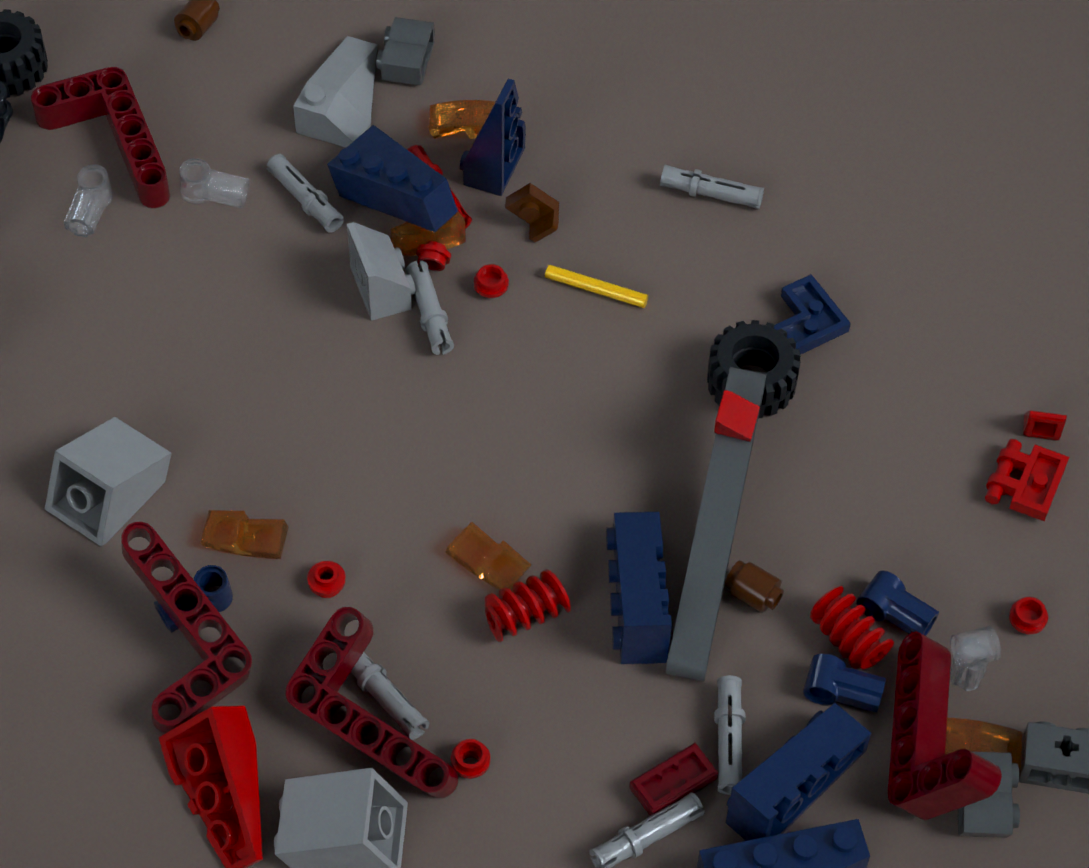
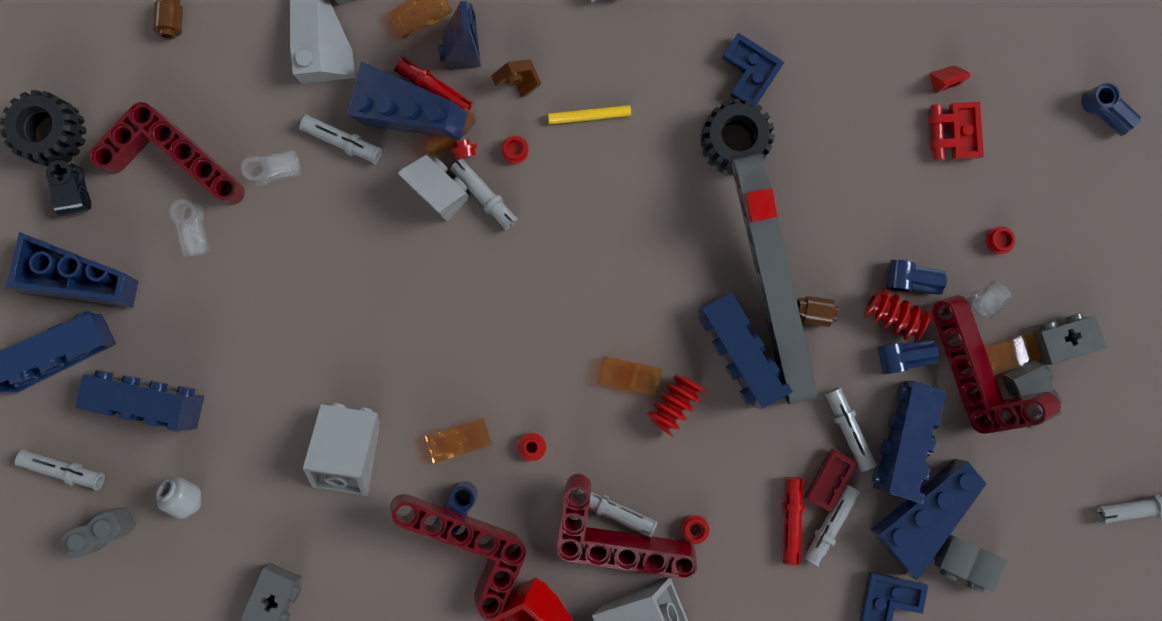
camera: 25 degrees left, 30 degrees up
(607, 790) = (793, 520): none -> red pin

